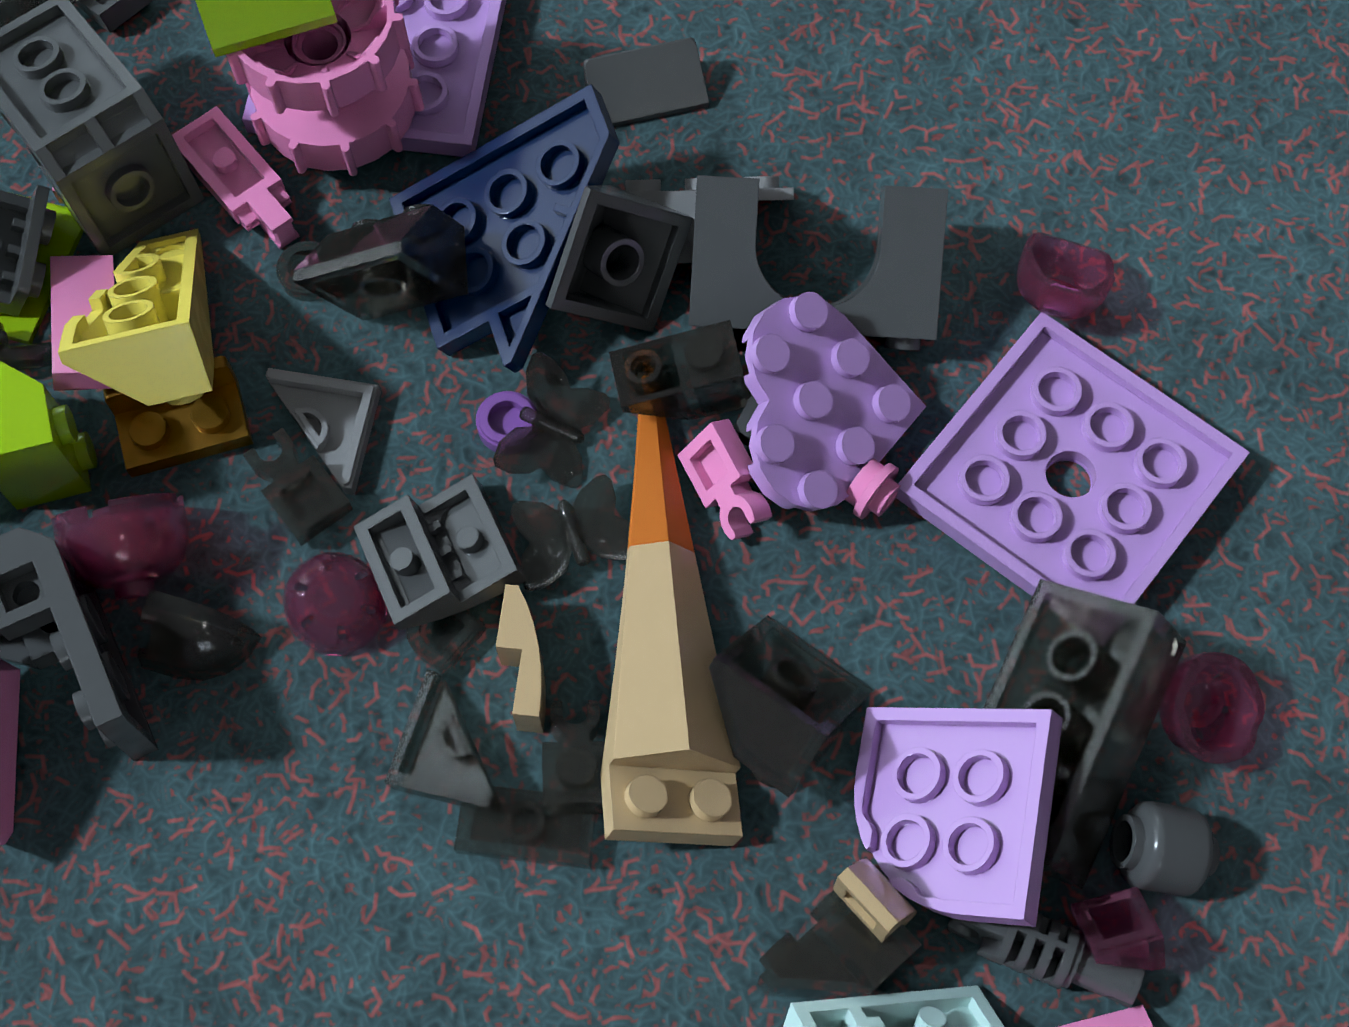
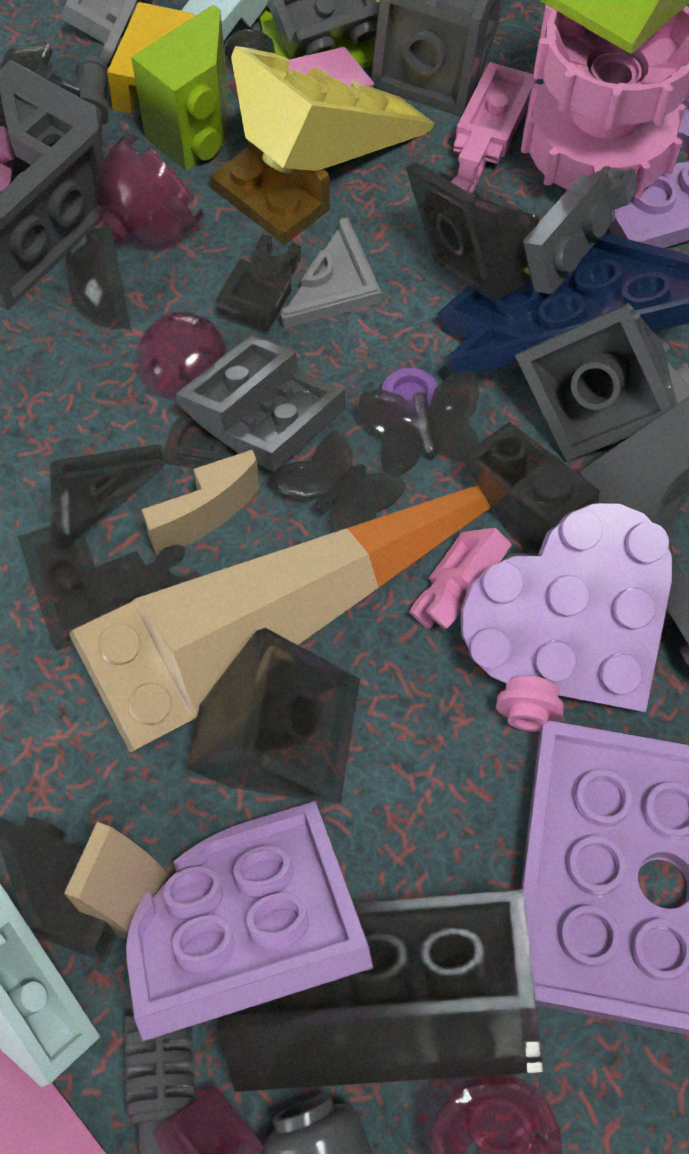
camera: 60 degrees right, 5 degrees down
(442, 172) = (576, 225): none -> dark grey hinge

